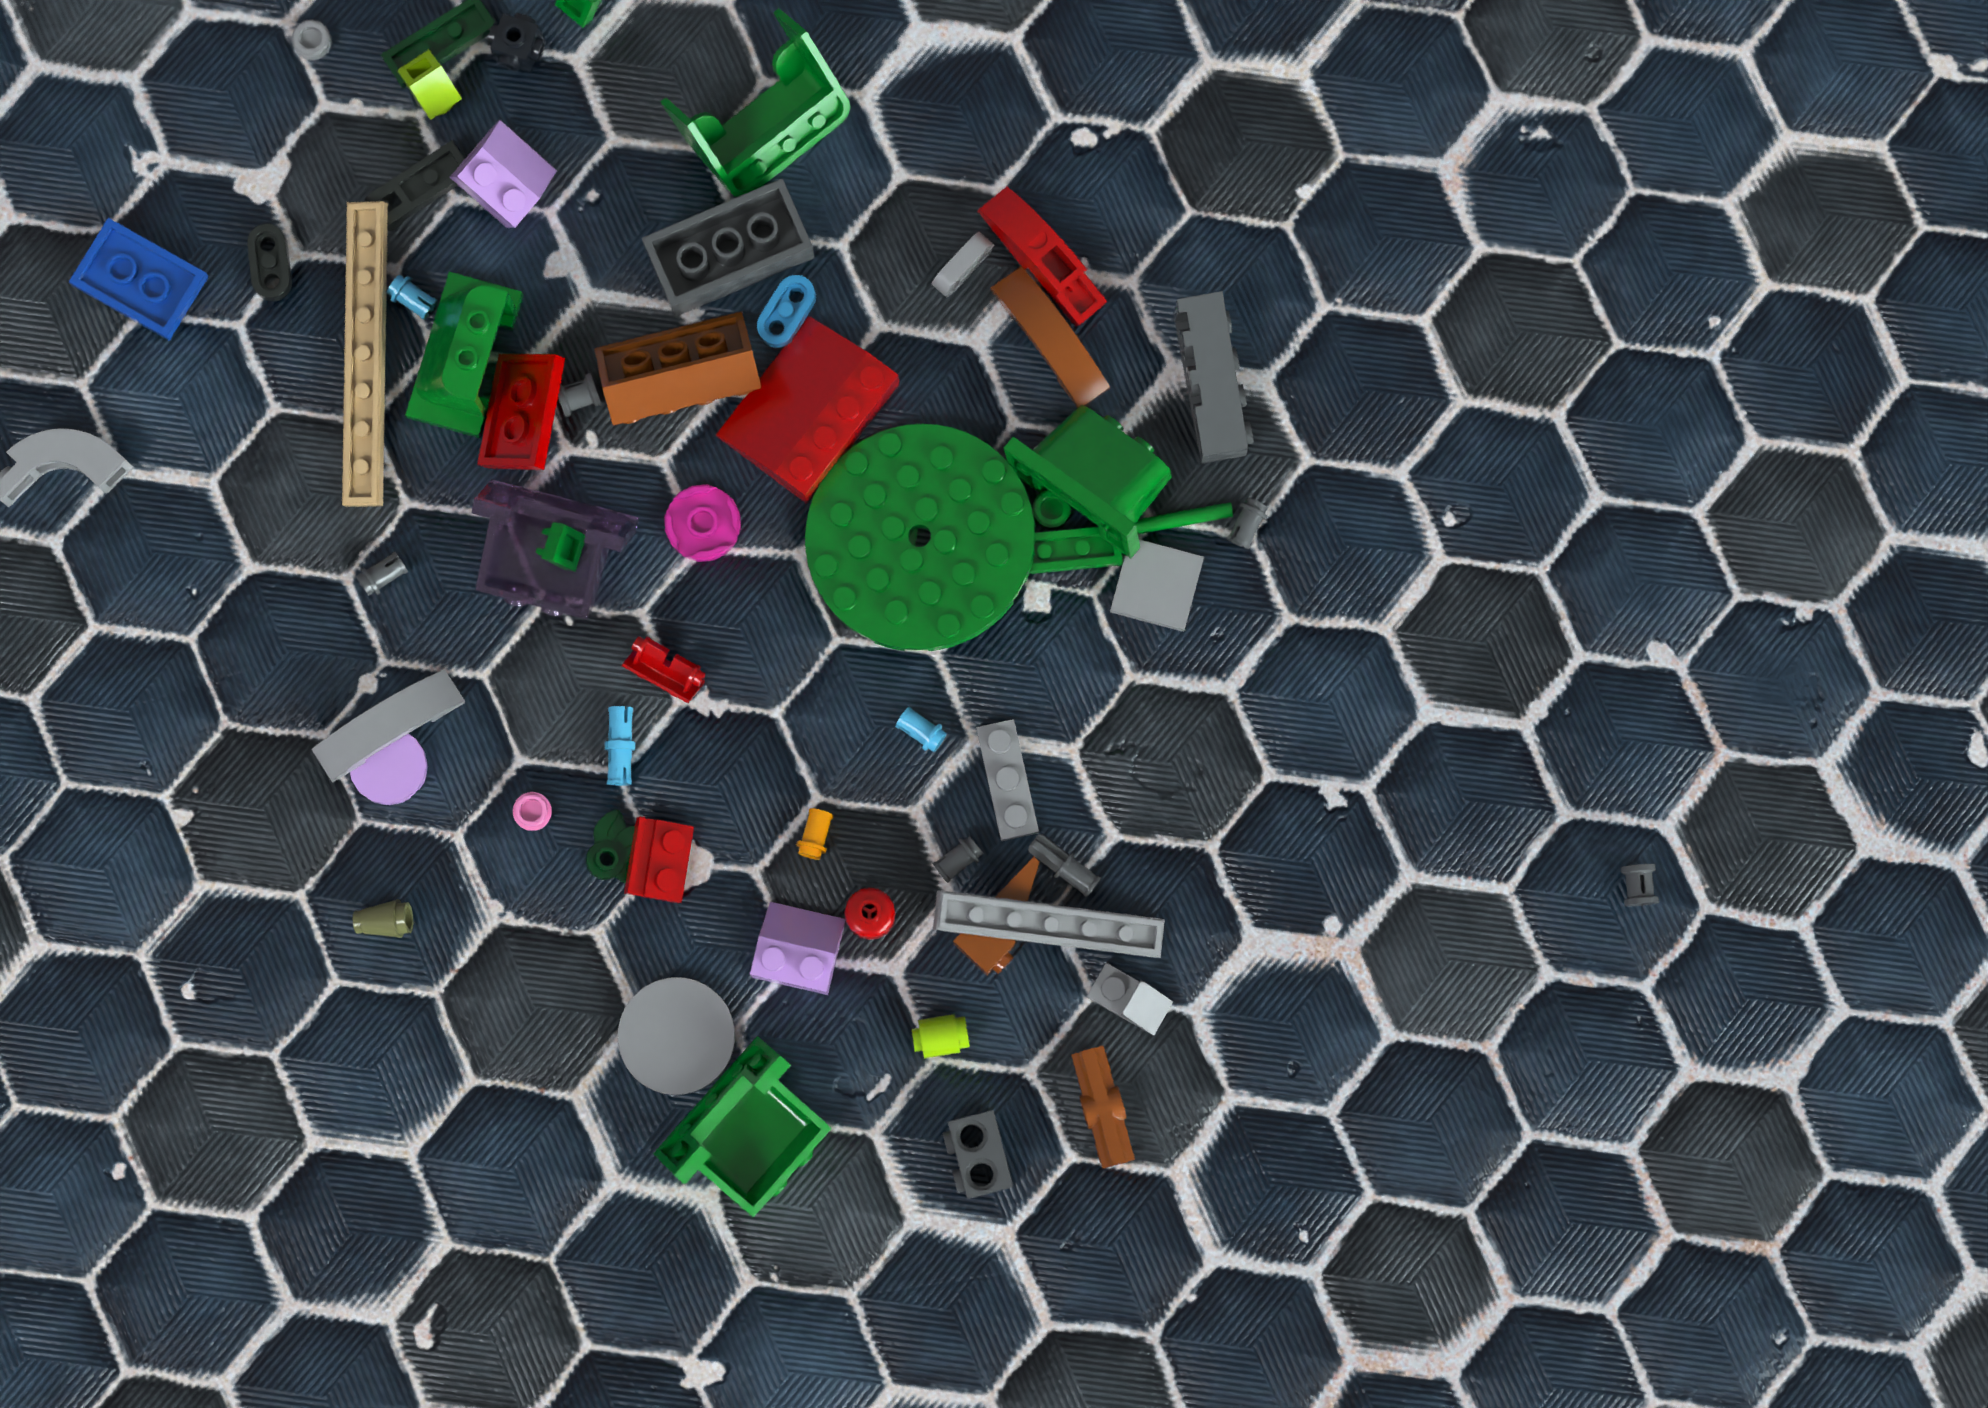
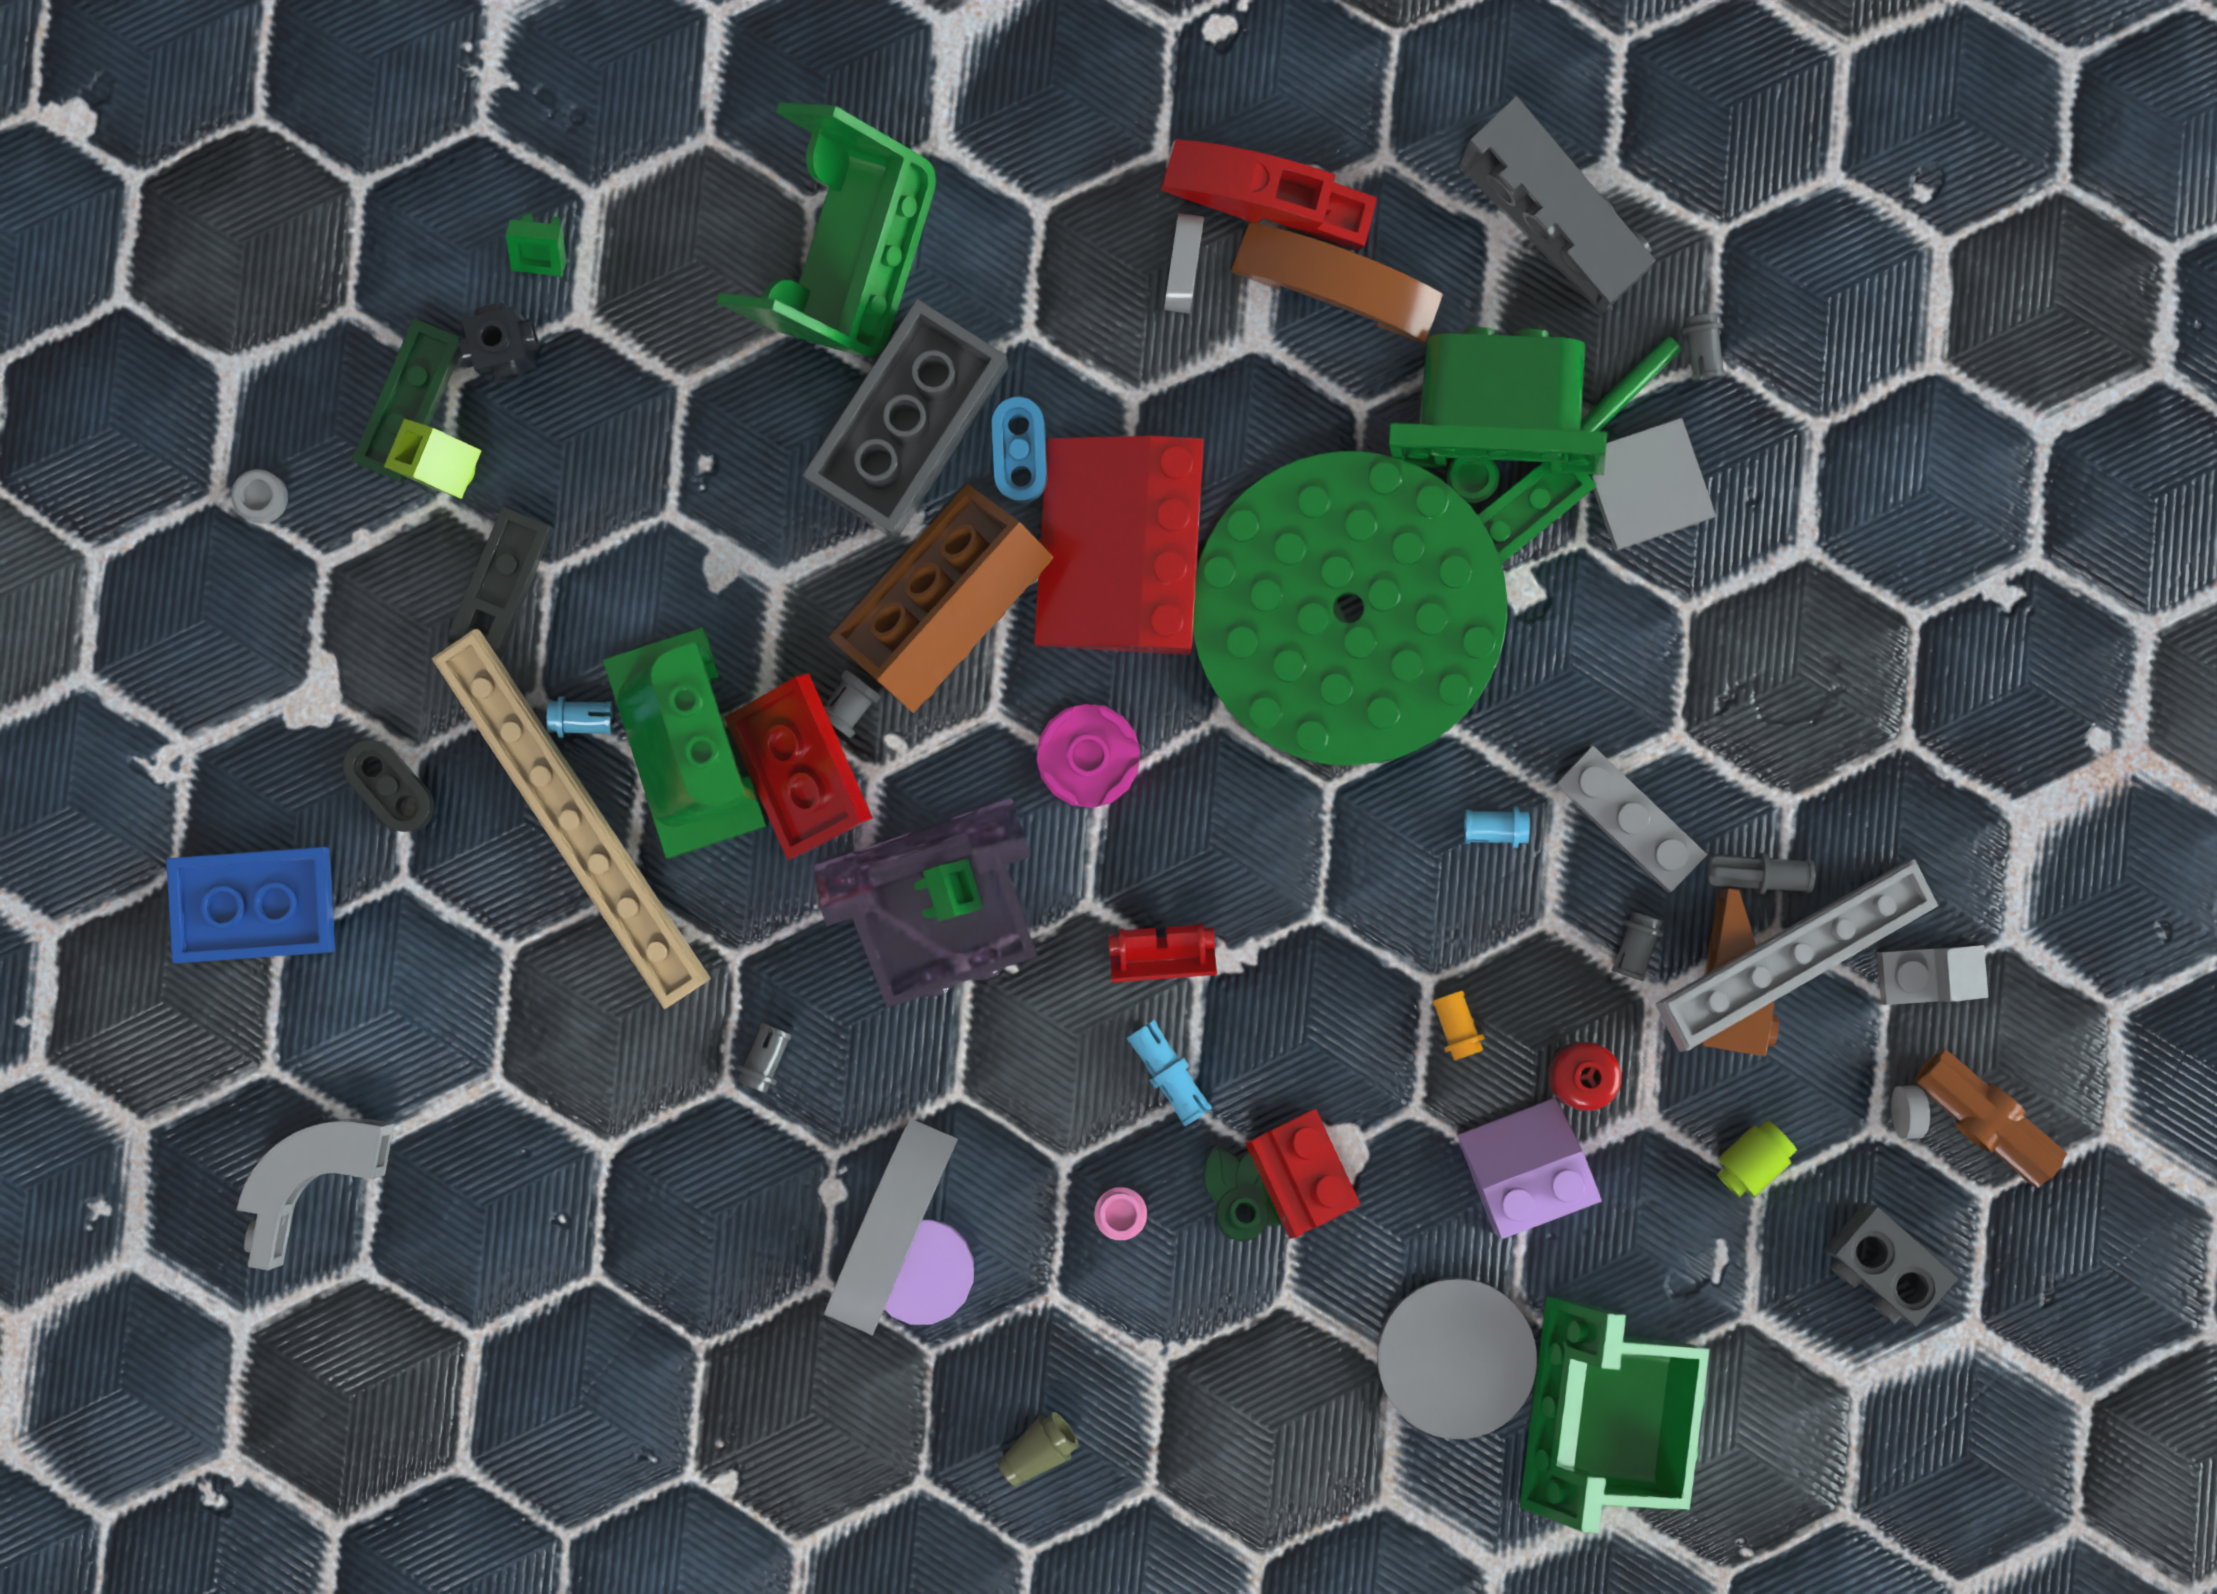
camera: 30 degrees left, 5 degrees up
(504, 175) = (591, 507): lavender slope -> none
(1056, 1070) = (1910, 1111): none -> light grey tile

